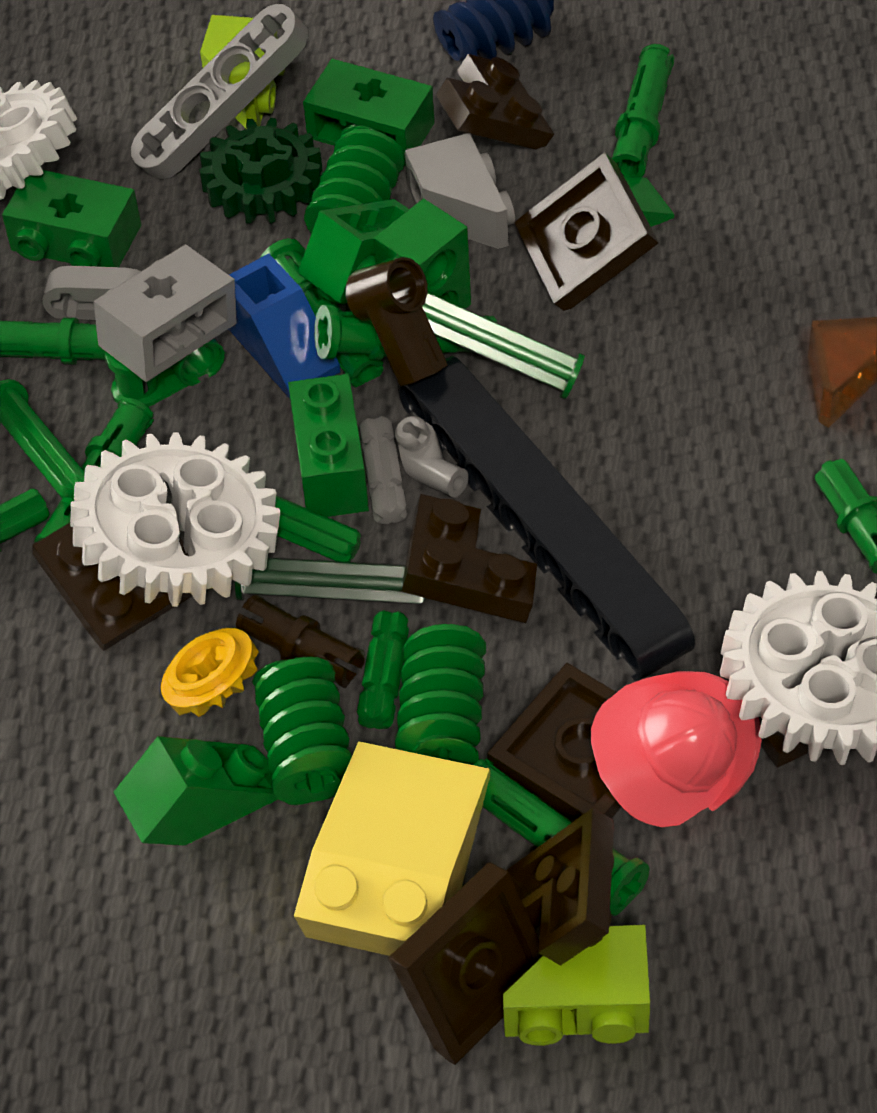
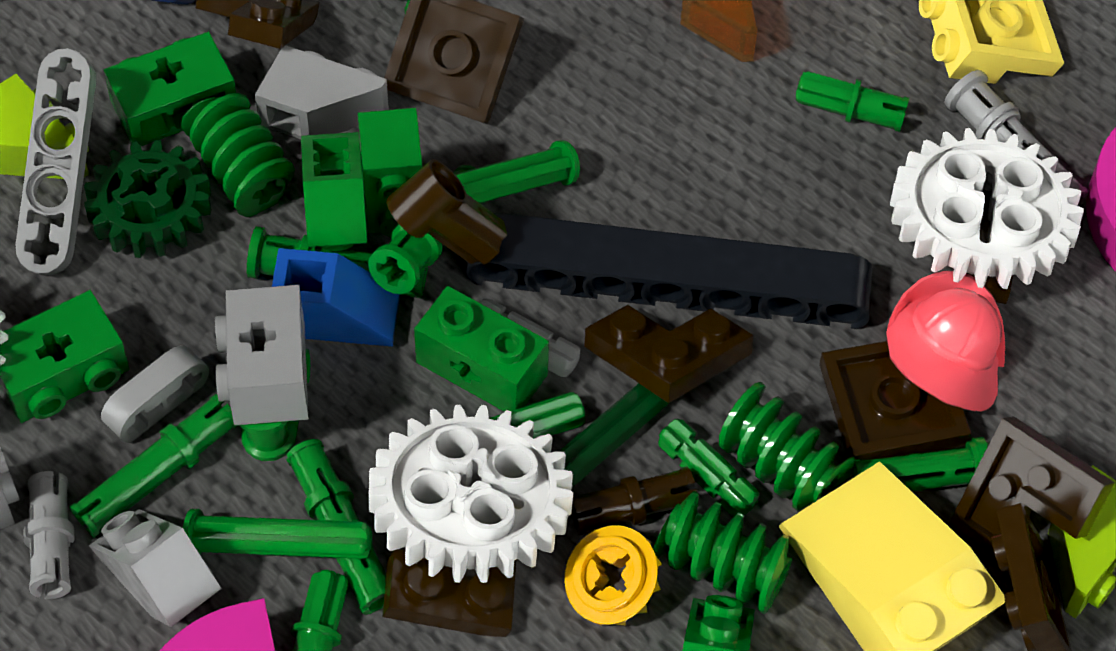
camera: 55 degrees left, 5 degrees up
(424, 459) = (545, 305): light grey arm -> none

